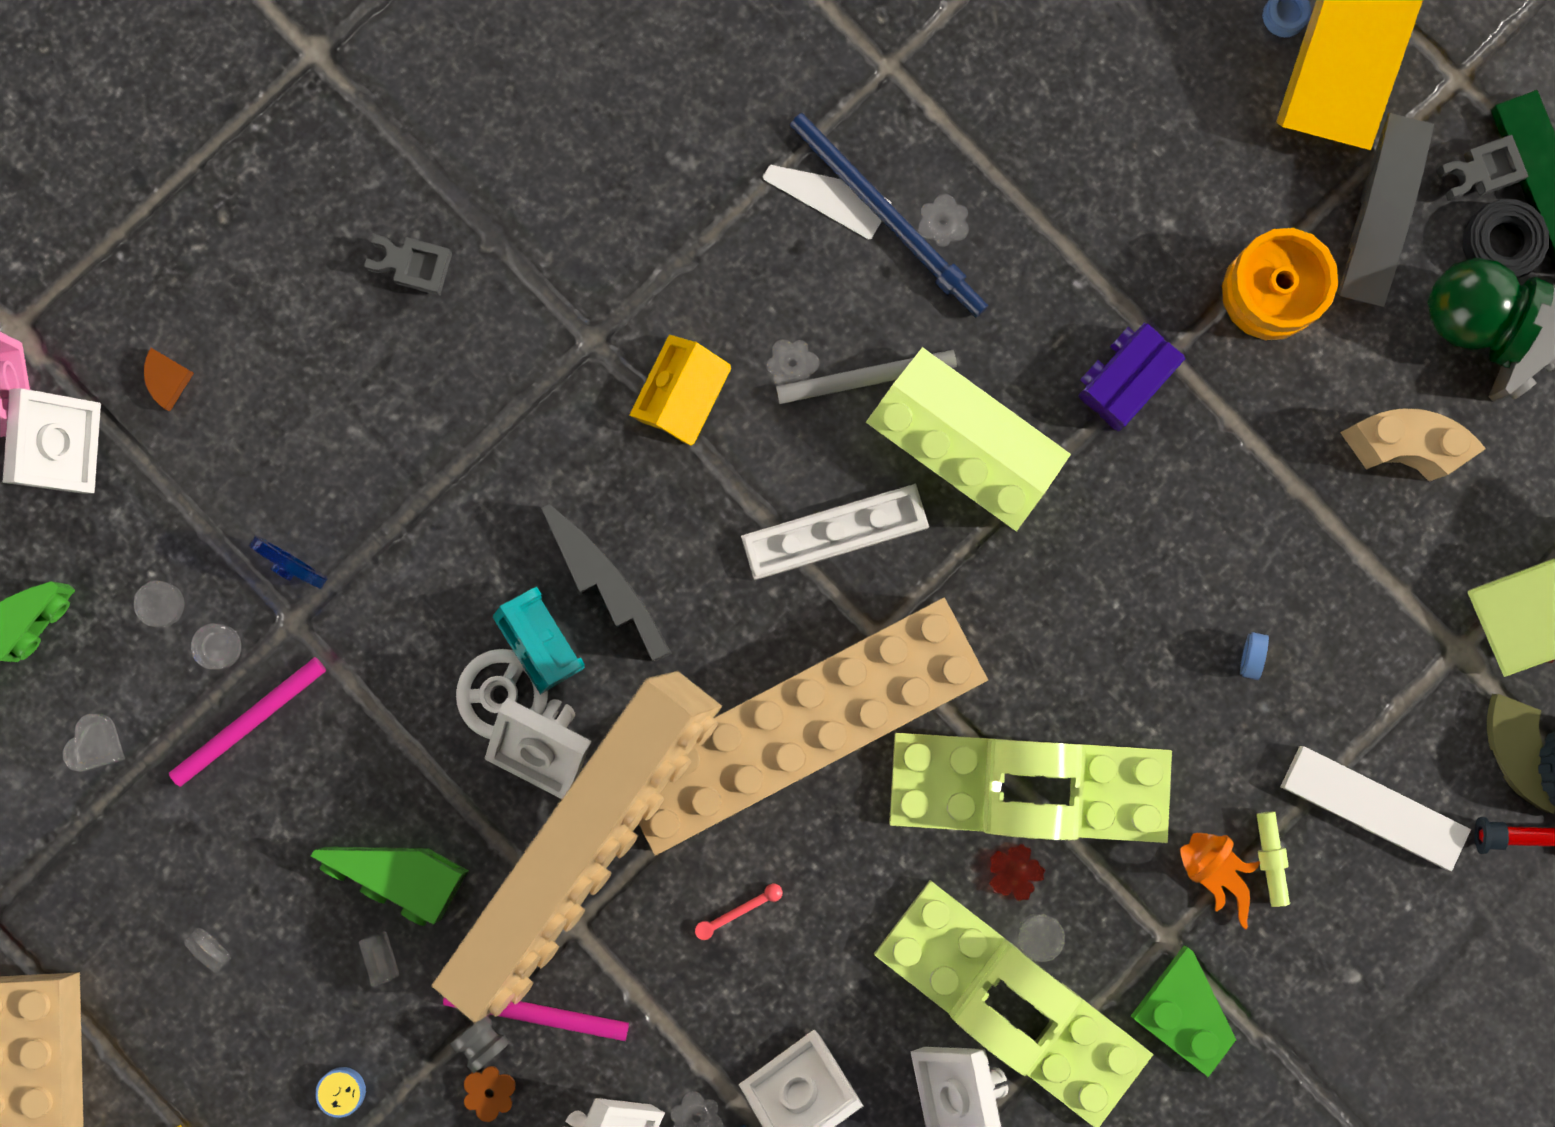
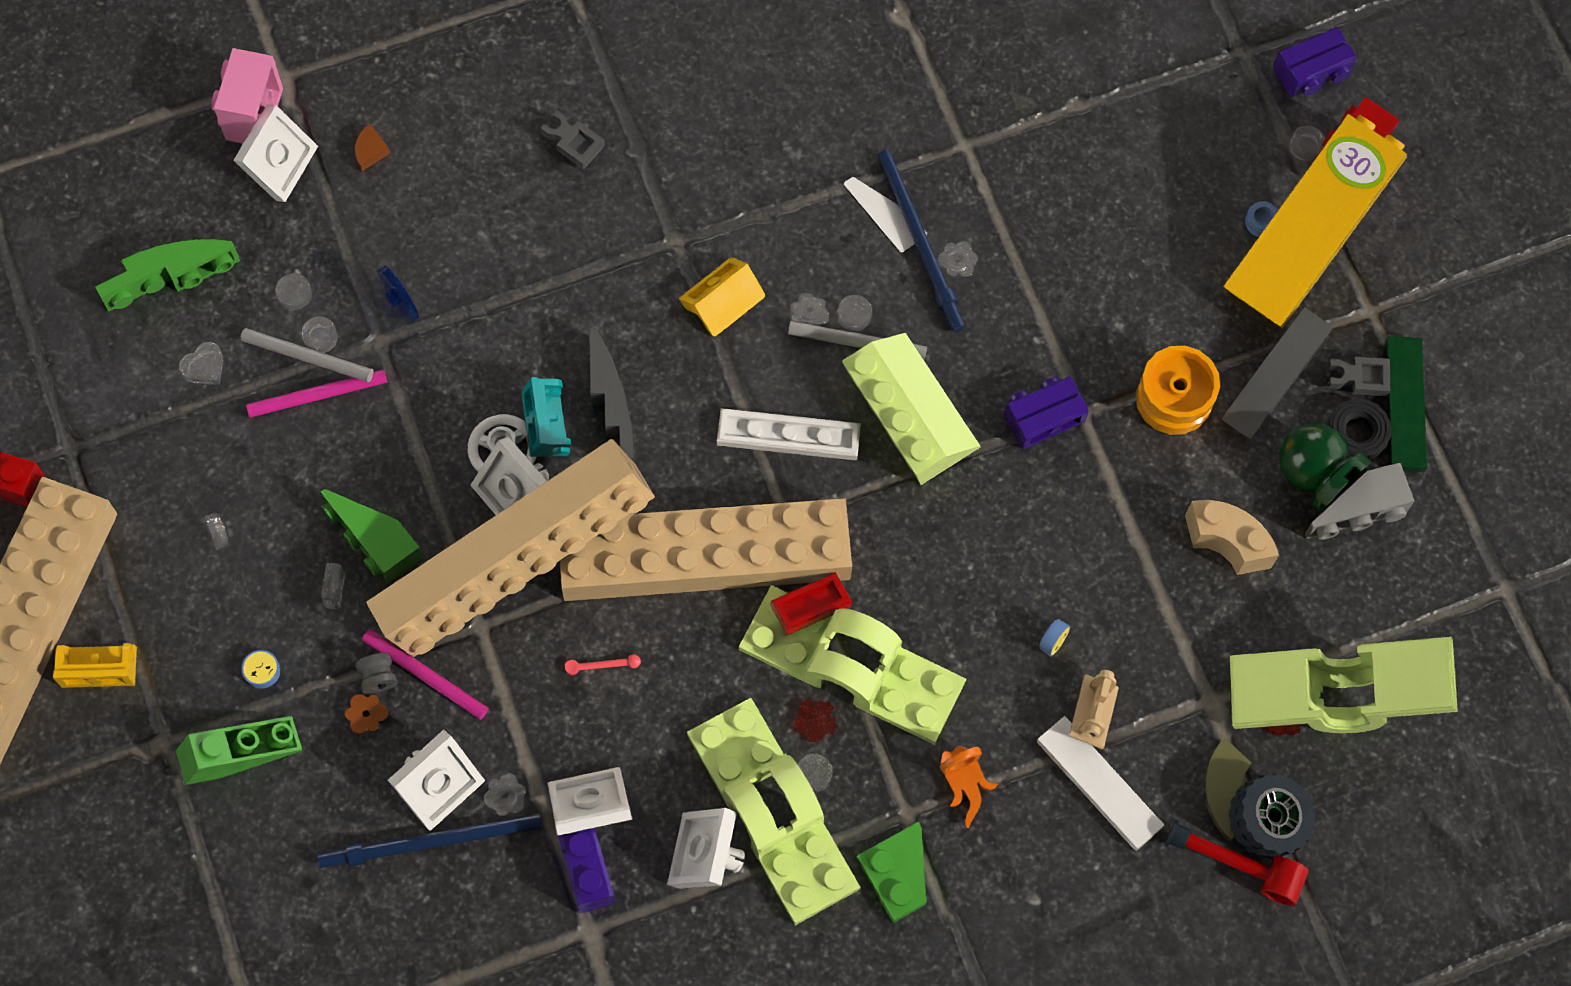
camera: 20 degrees right, 15 degrees down
(213, 681) = (307, 355): none -> light grey bar
(848, 343) = (854, 313): none -> clear tile
(956, 741) = (811, 603): none -> red tile
(1273, 859) = (1008, 787): yellowish green bar -> none
(1336, 725) = (1094, 708): none -> tan hinge

